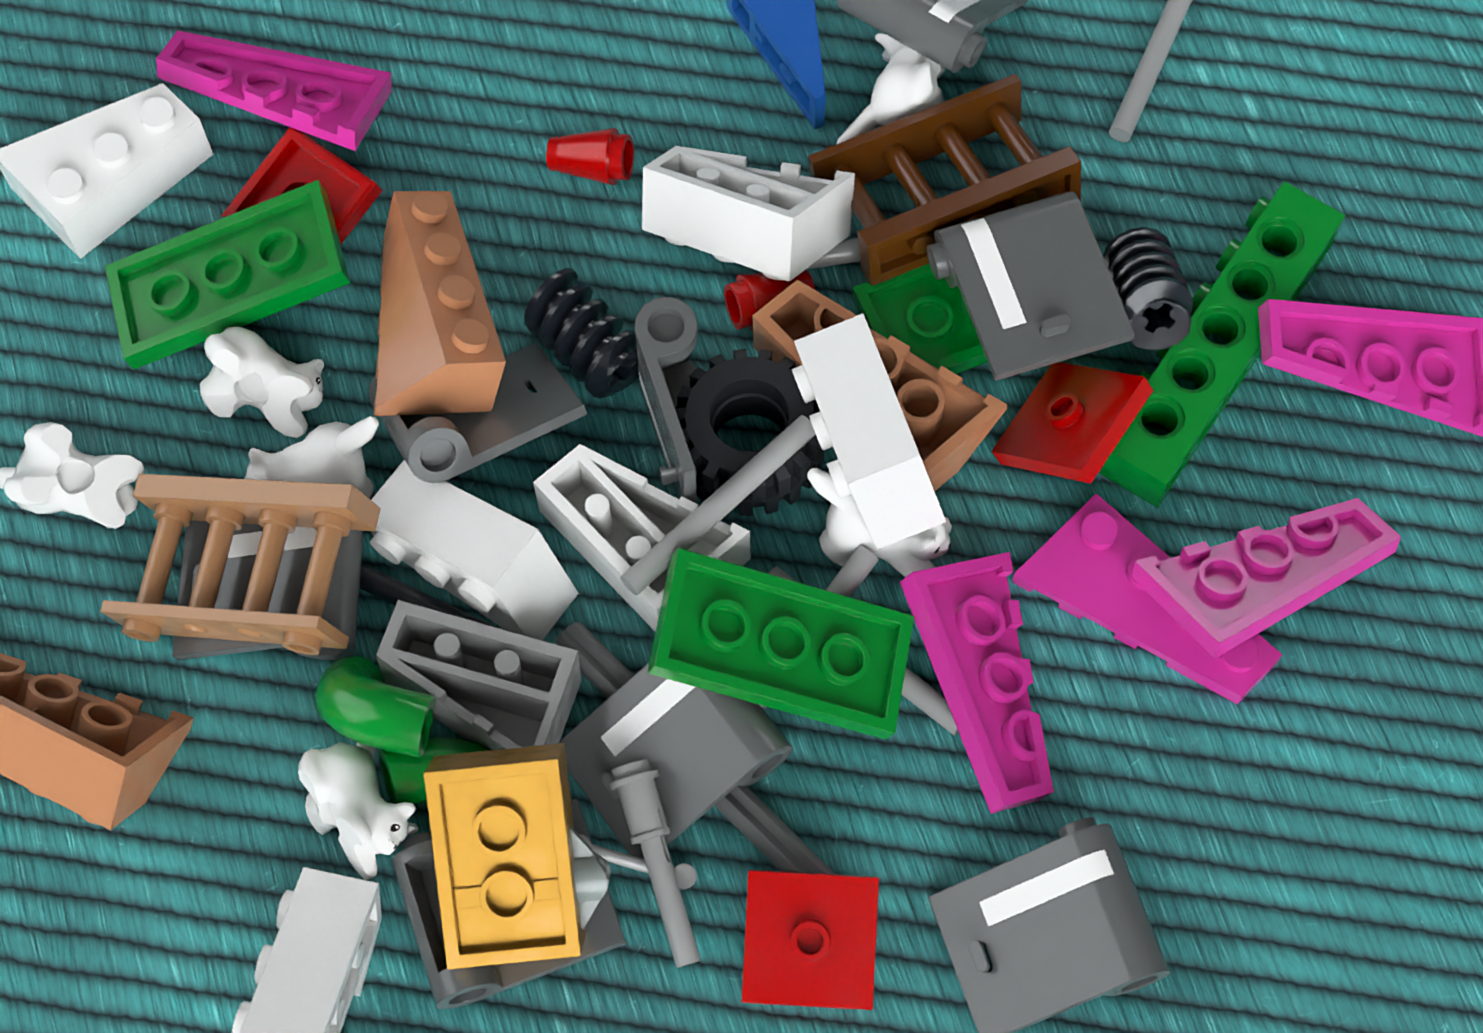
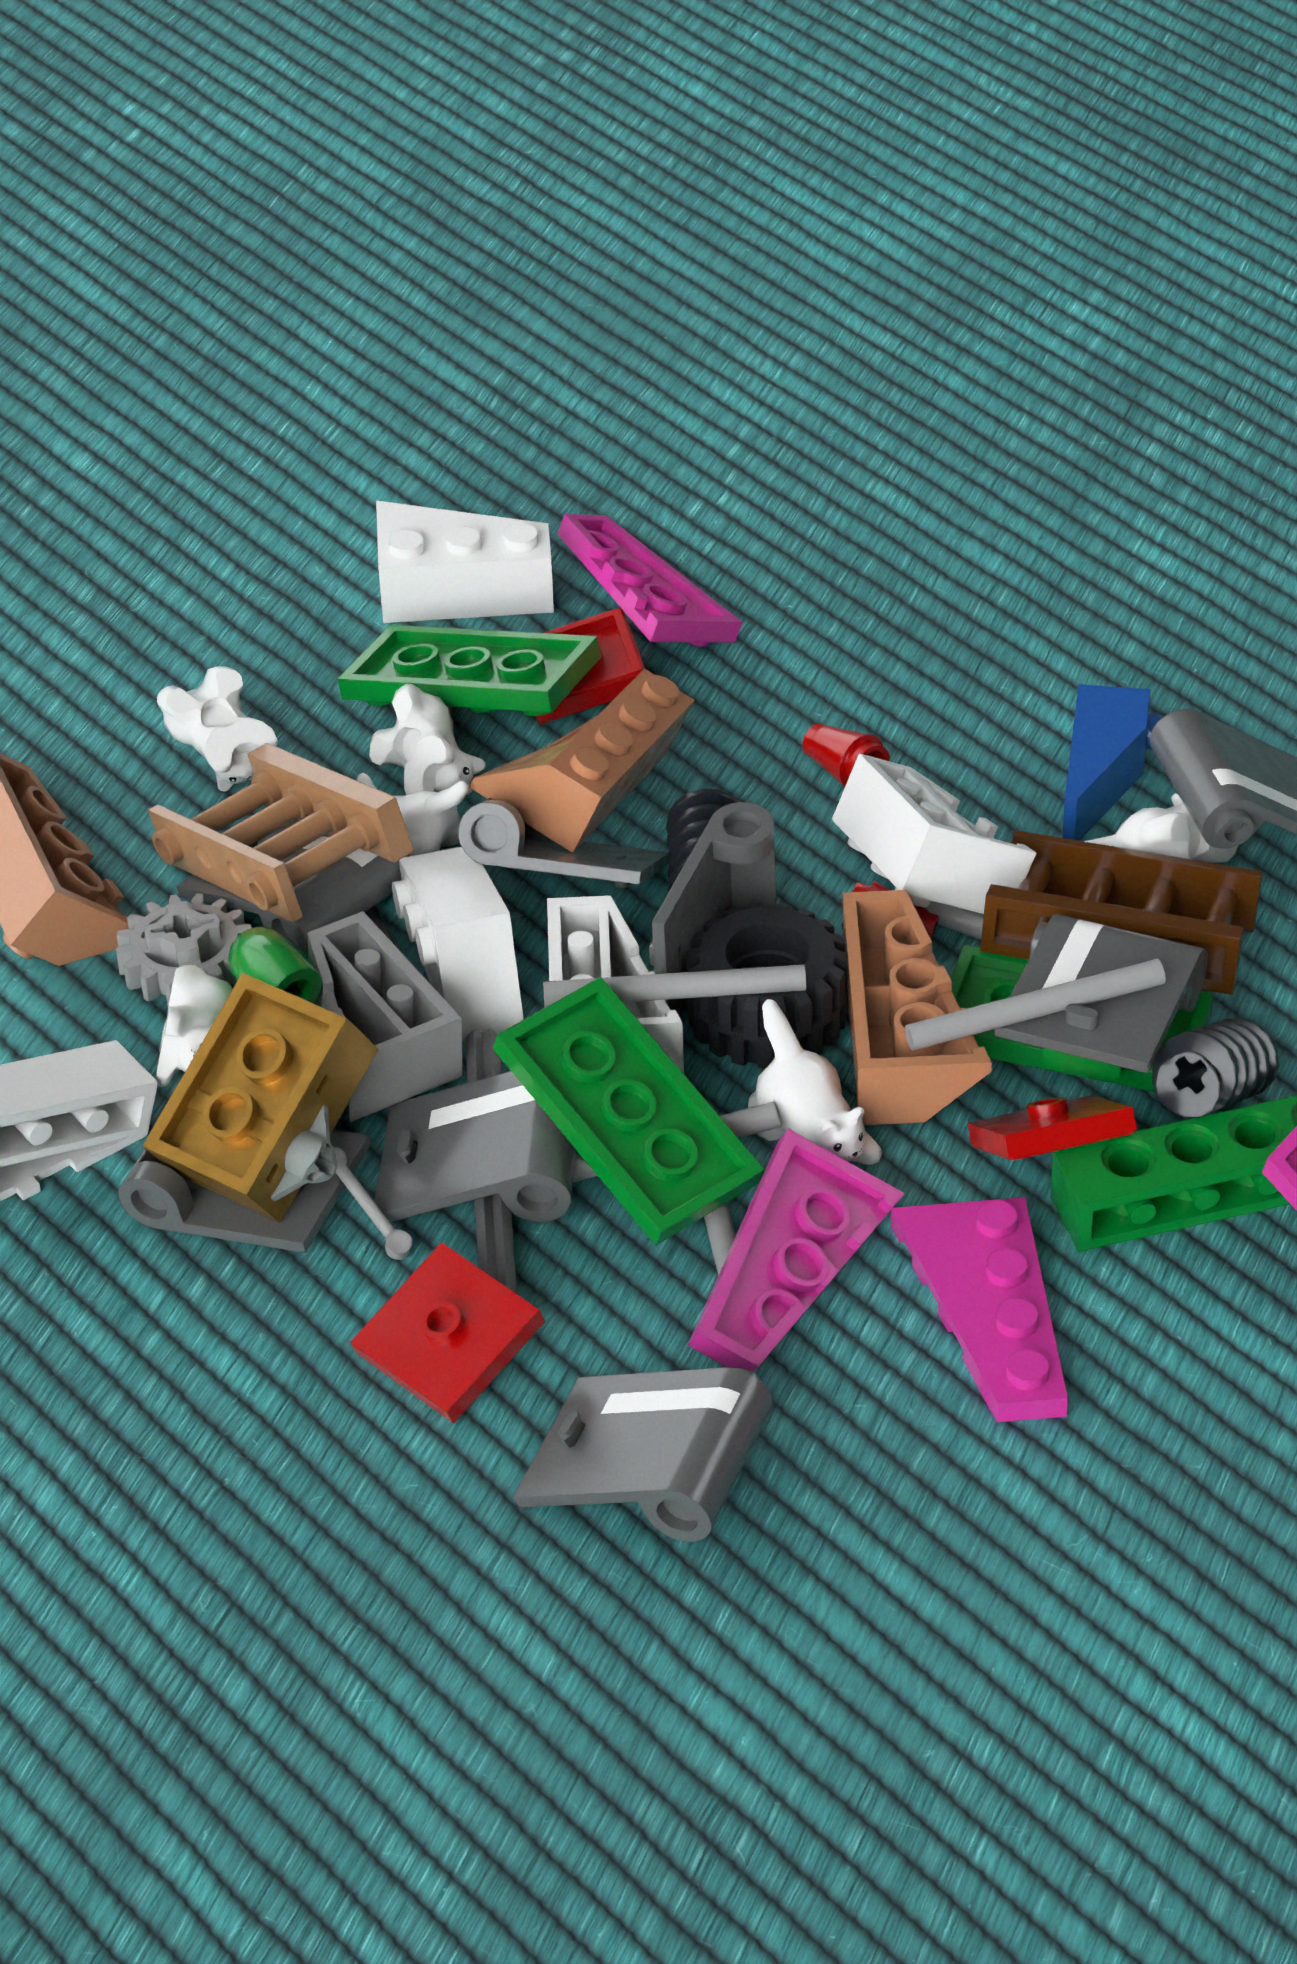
camera: 40 degrees right, 25 degrees down
(237, 703) = (177, 937): none -> light grey gear
(648, 827) = (417, 1141): light grey pin -> none
(868, 432) = (831, 995): white wedge -> none
(1015, 339) = (1034, 1004): none -> light grey bar
(1265, 575) = (1115, 1324): dark pink wing -> none

